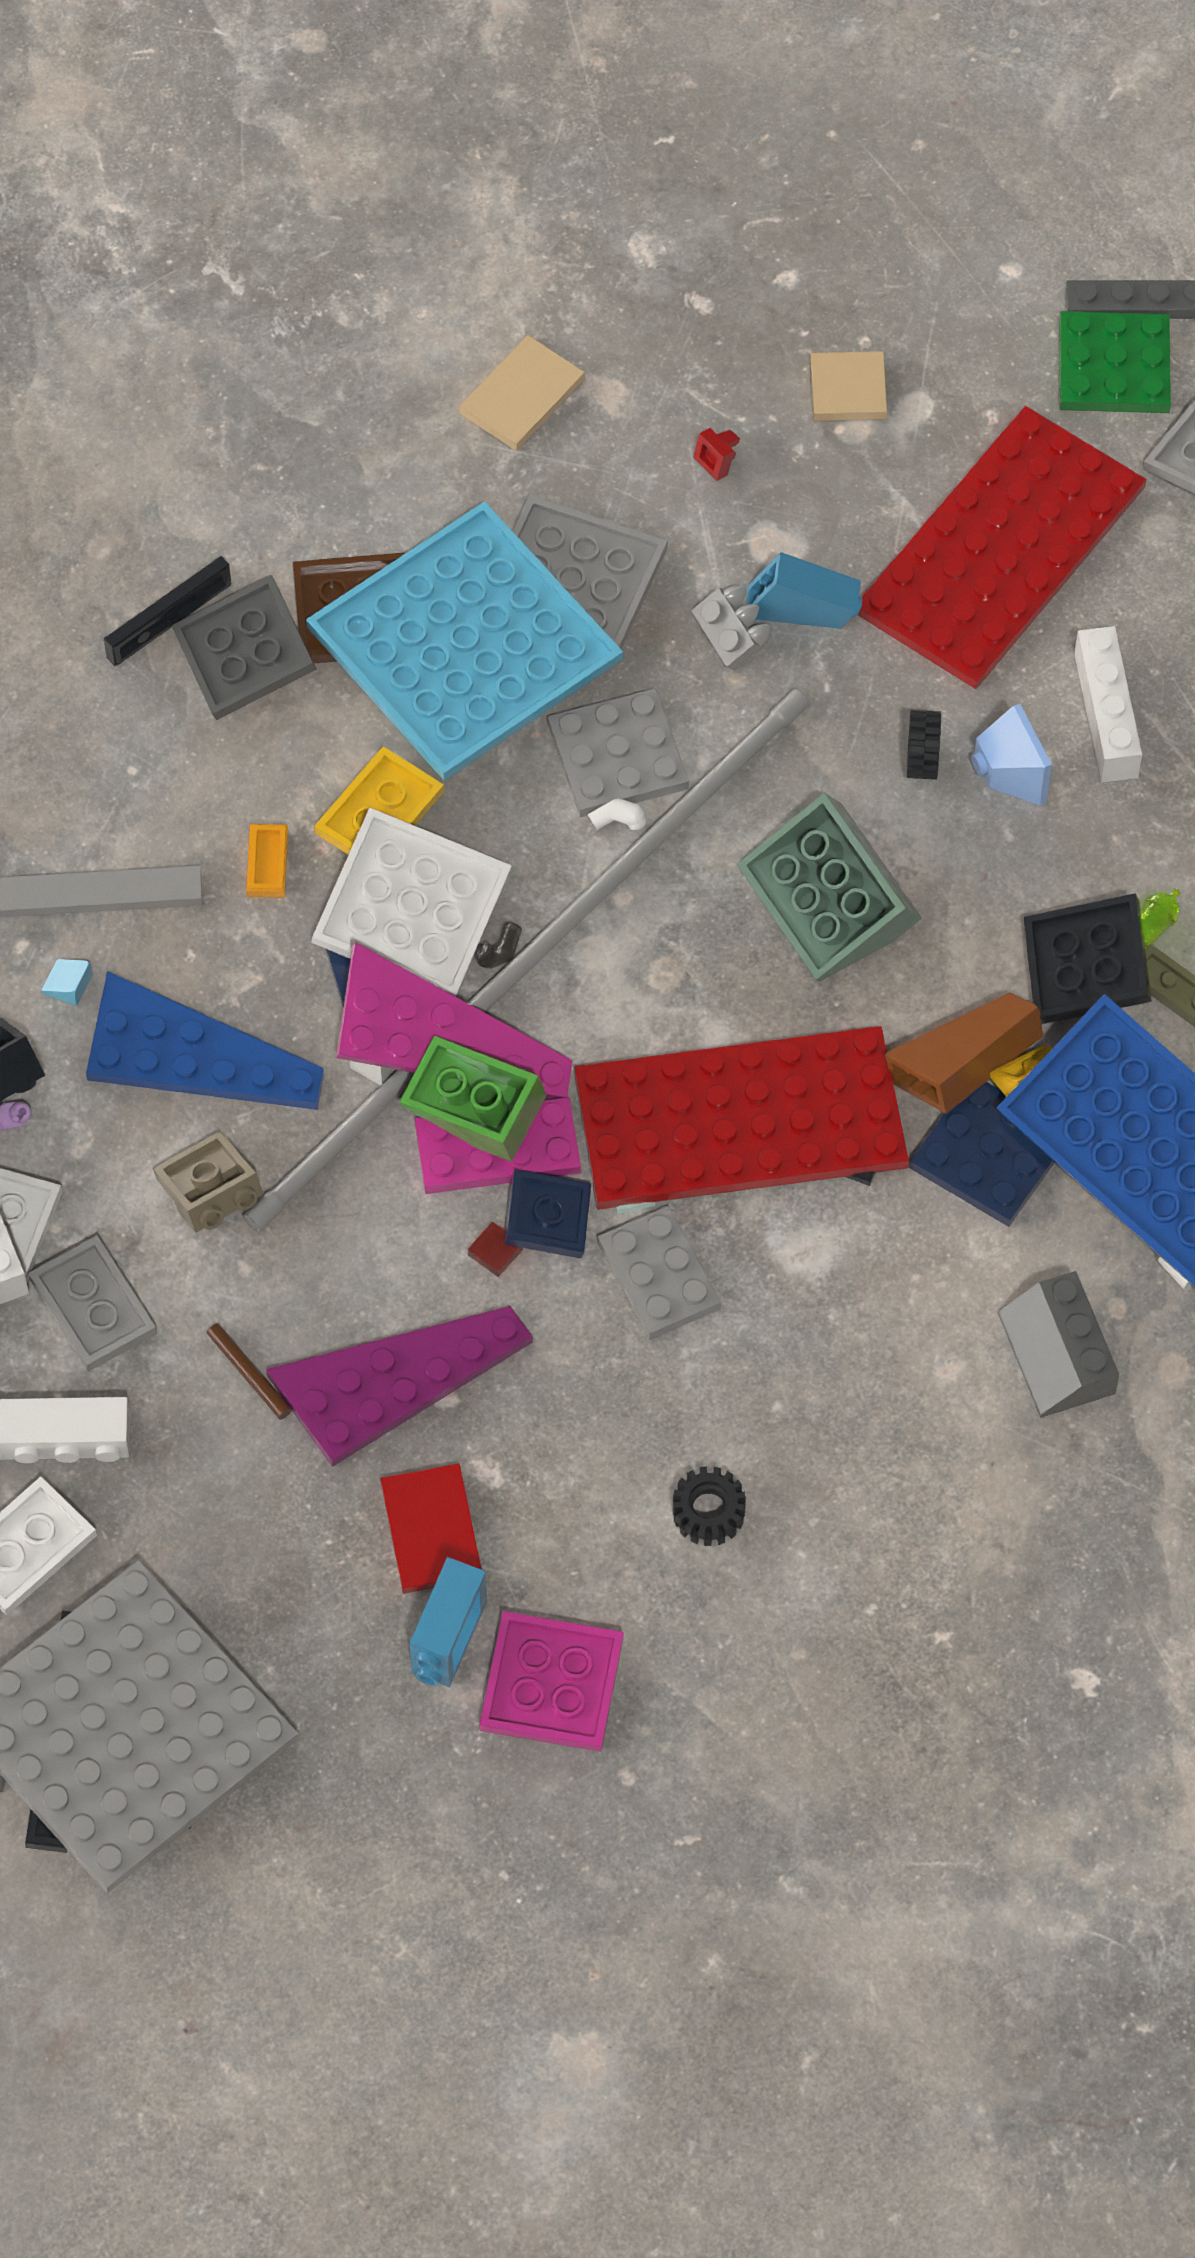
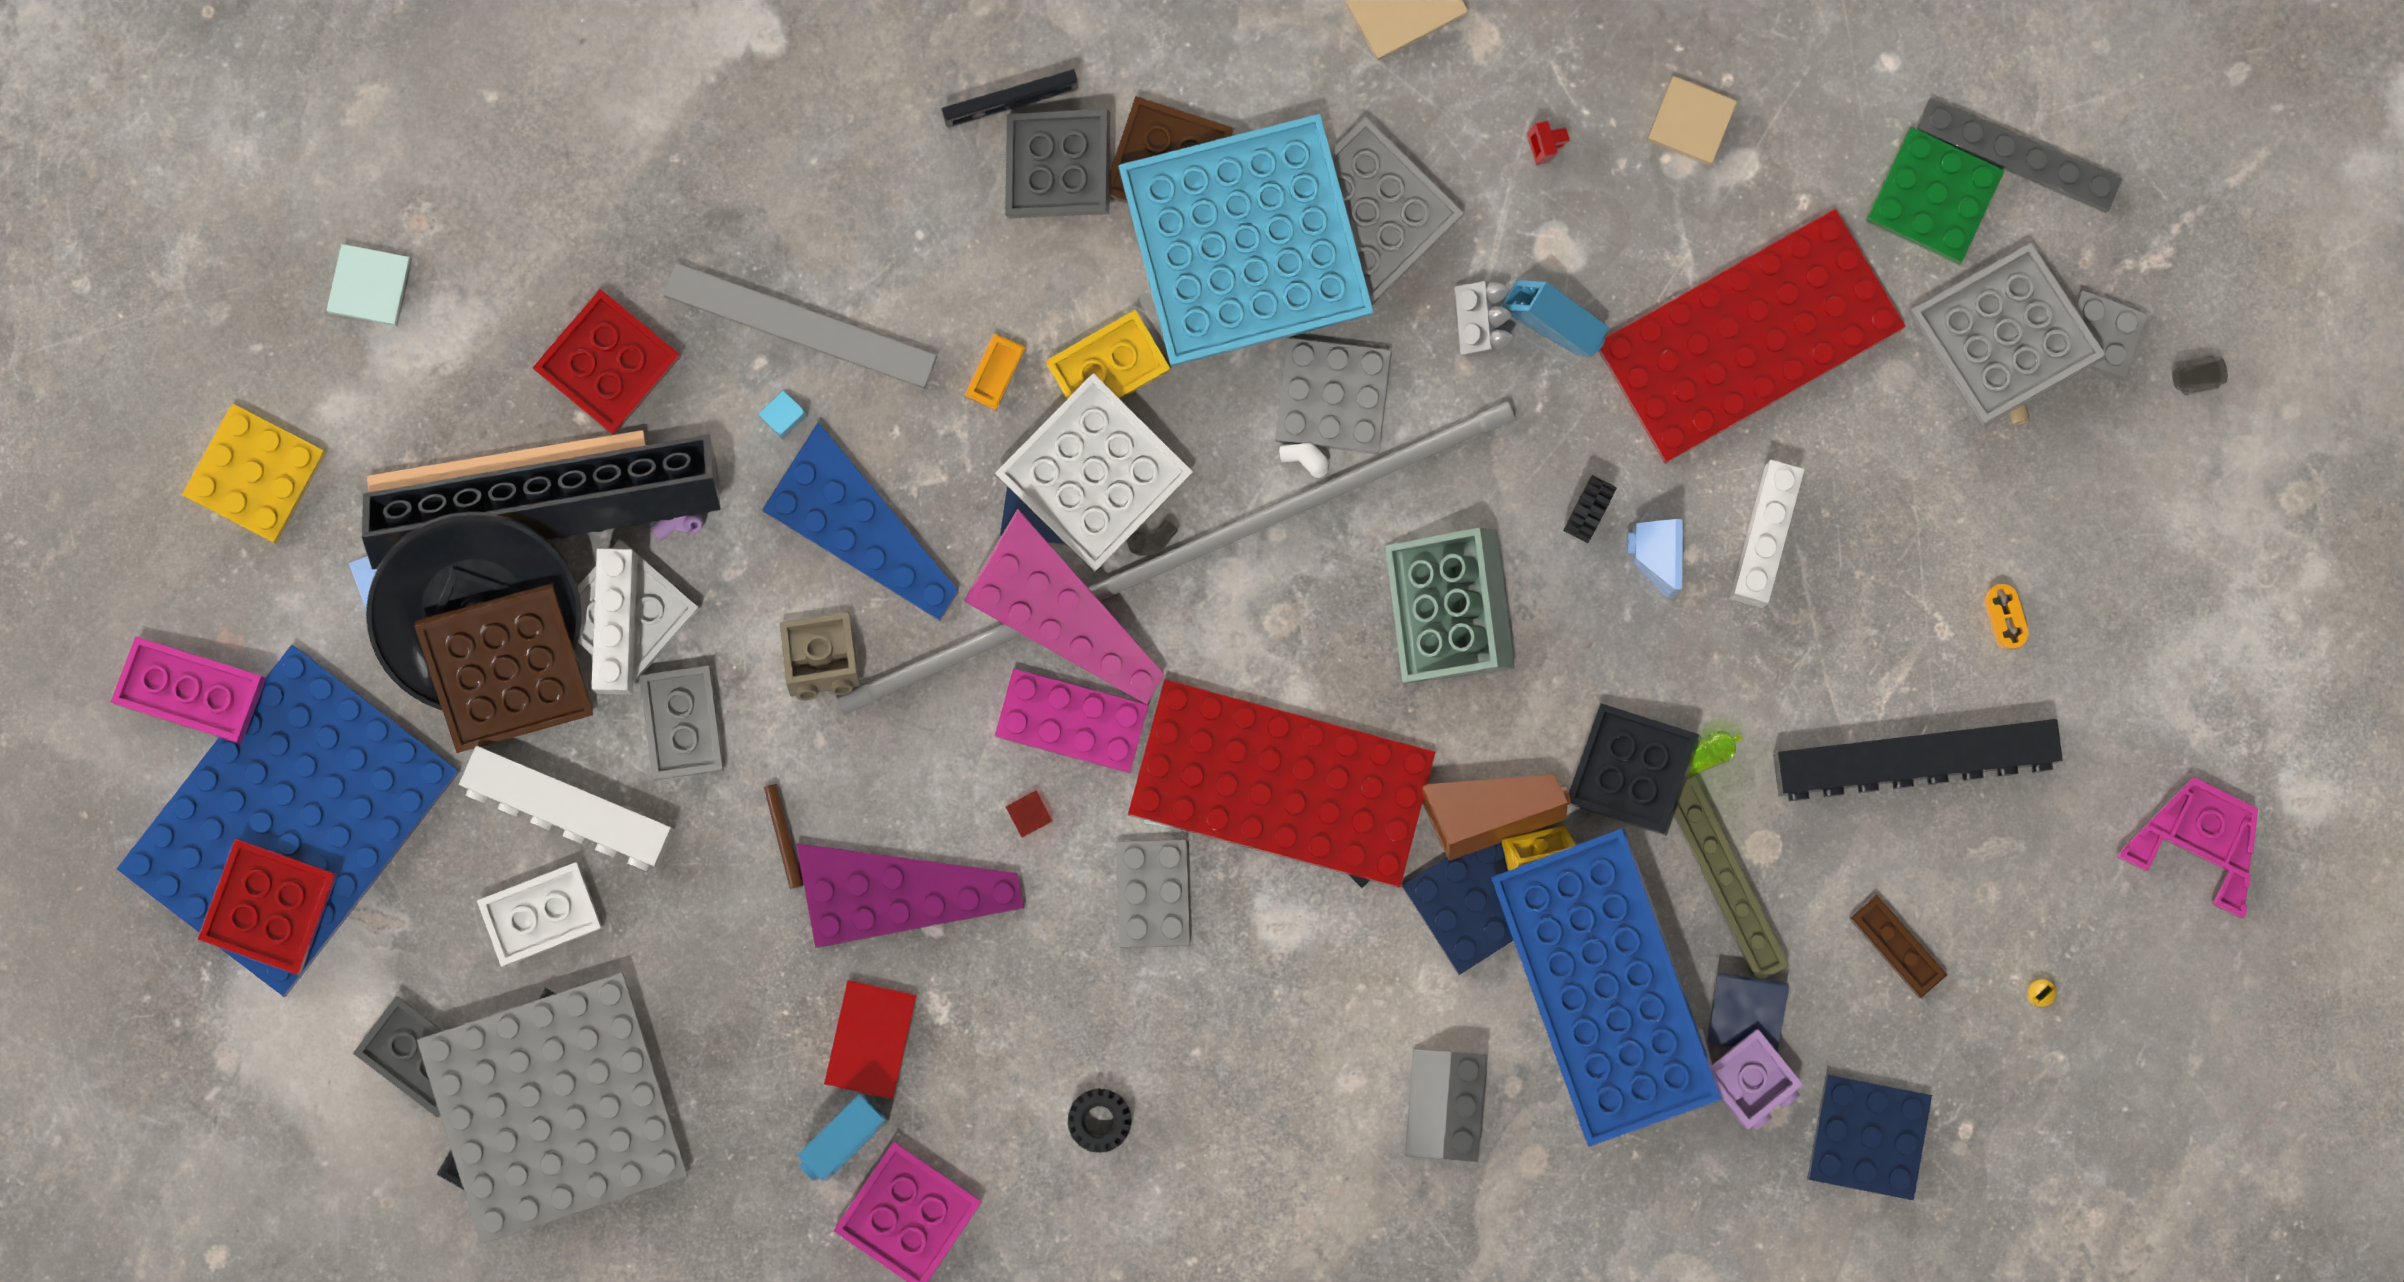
camera: 20 degrees right, 20 degrees up
(475, 1097) = (1061, 685): bright green slope -> none
(547, 1213) = (1084, 803): dark blue tile -> none

